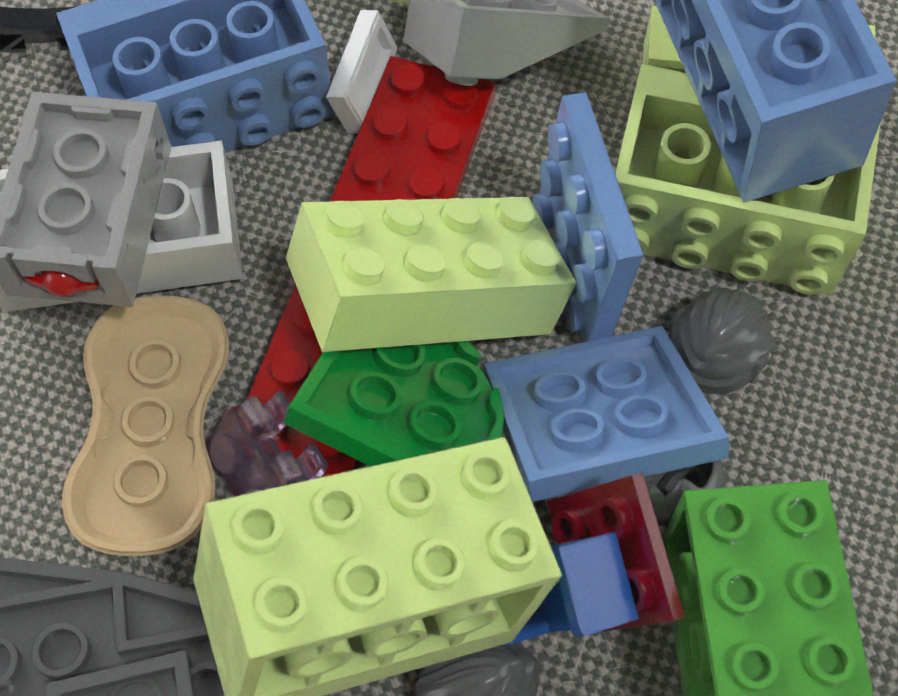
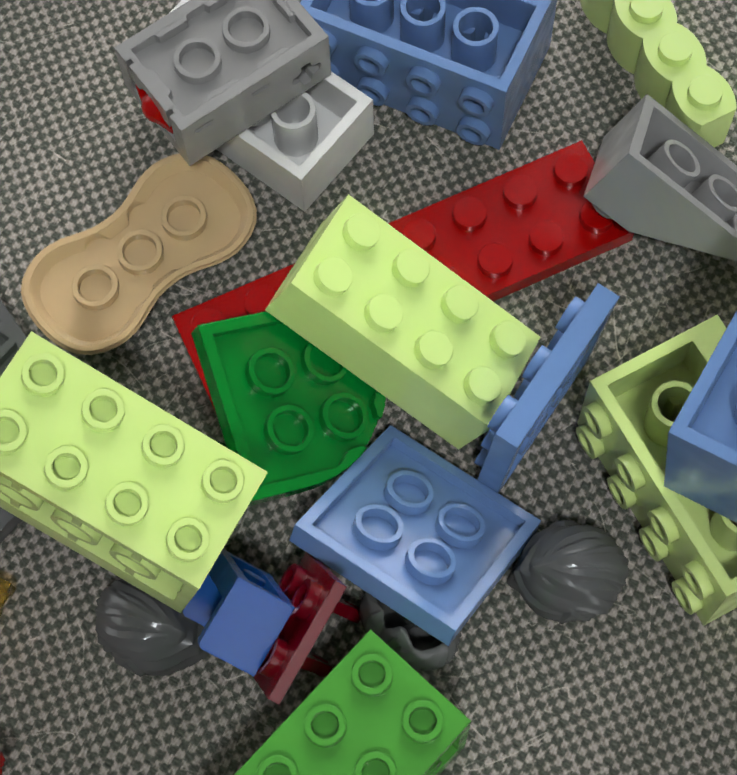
camera: 50 degrees right, 5 degrees up
(249, 456) = (162, 365): plate -> none
(361, 69) = (545, 131): white tile -> none

